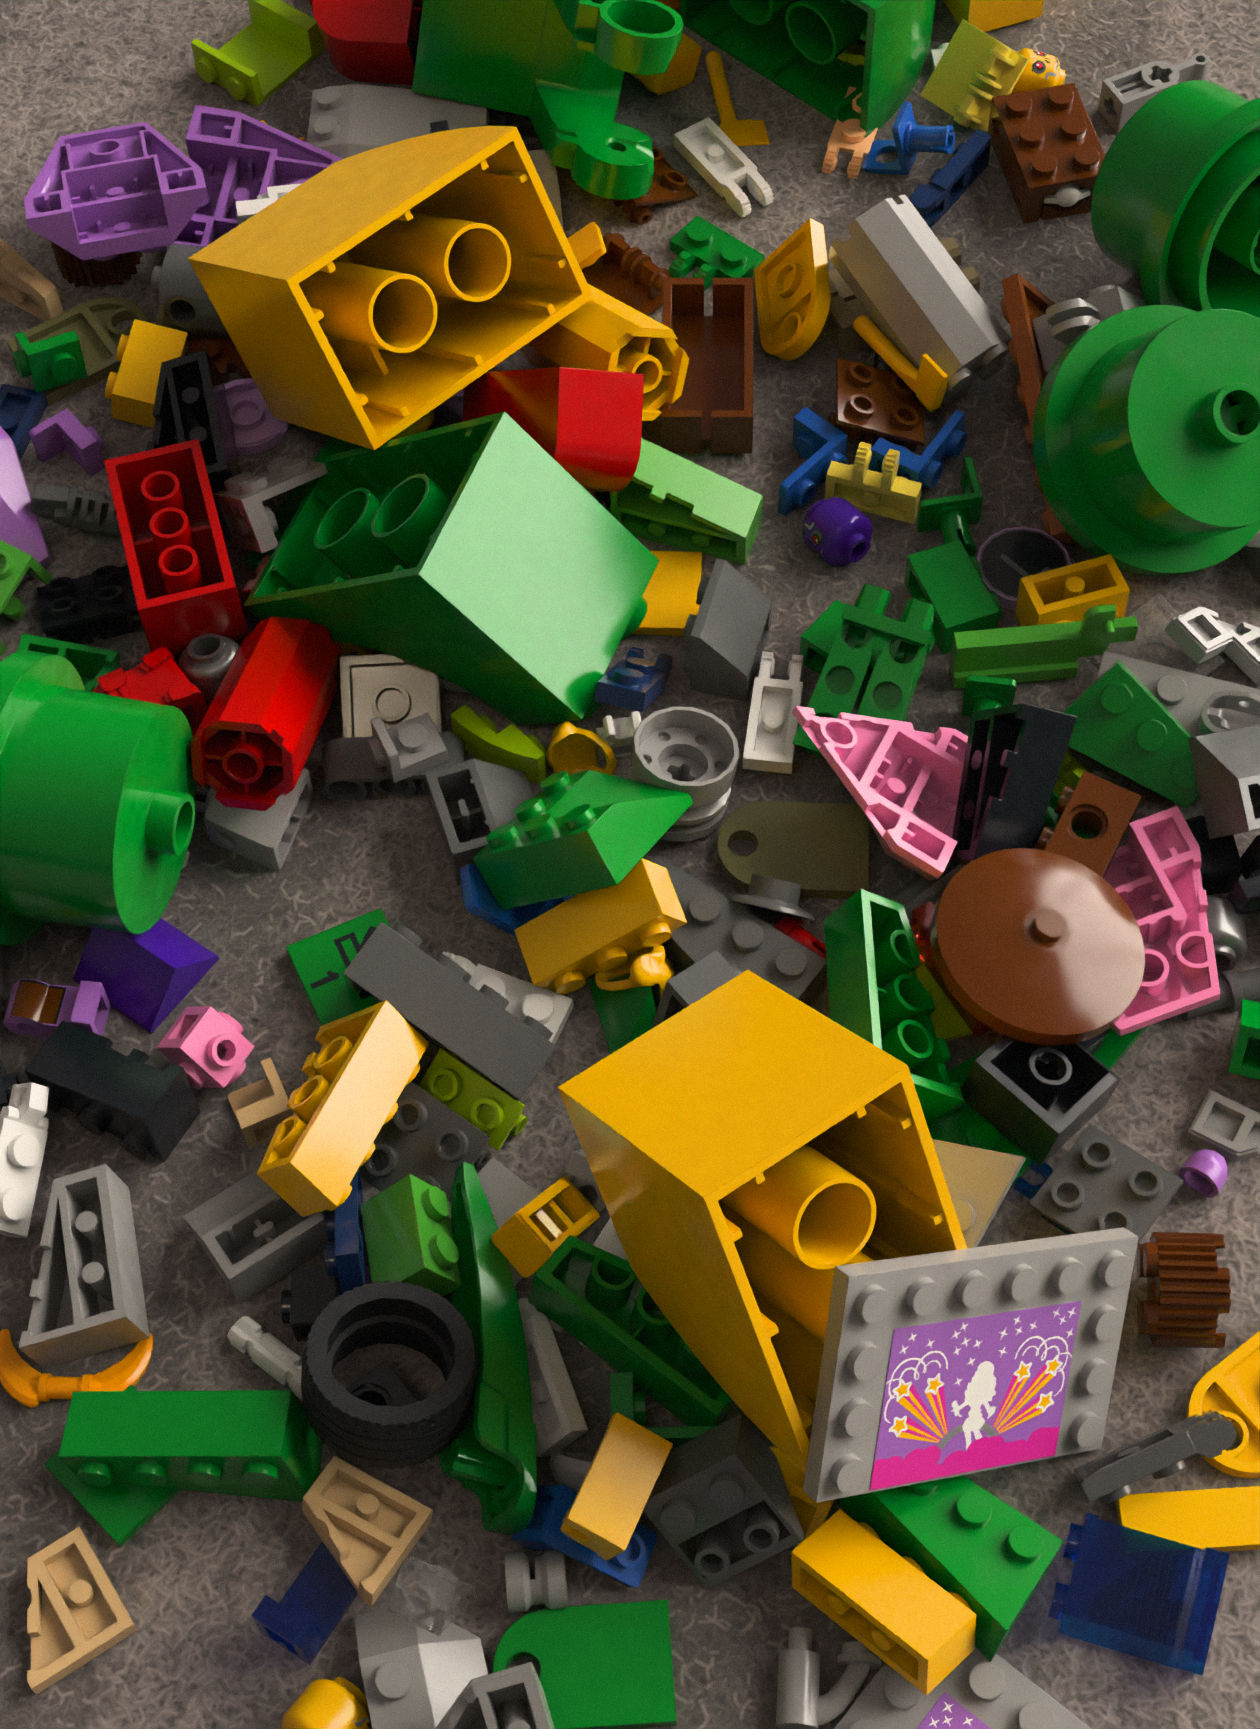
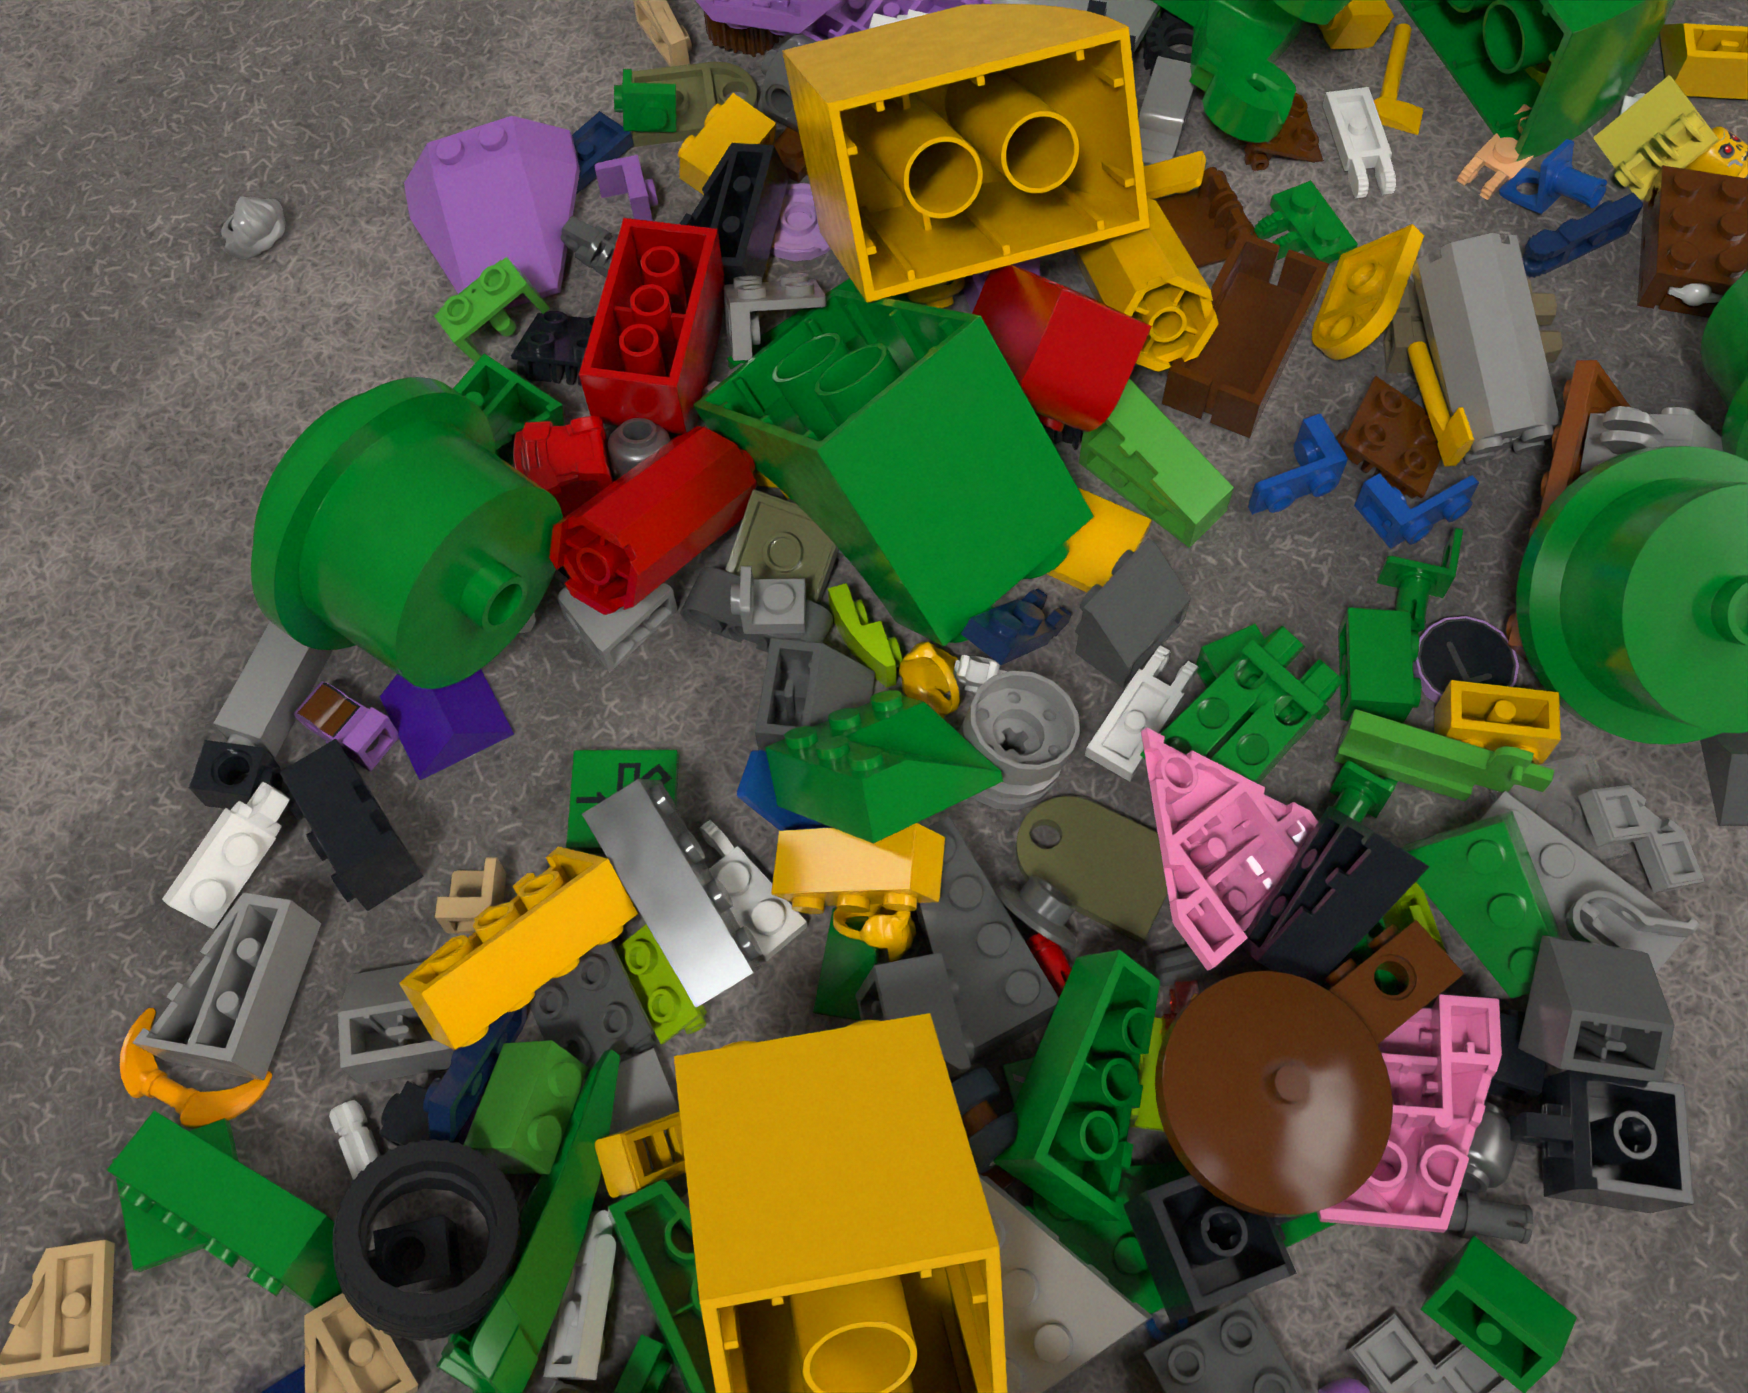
camera: 25 degrees right, 5 degrees up
(207, 1047) = (449, 821): bright pink brick -> none
(837, 531) = (1292, 550): dark purple head -> none
(875, 491) = (1348, 525): light yellow hinge -> none

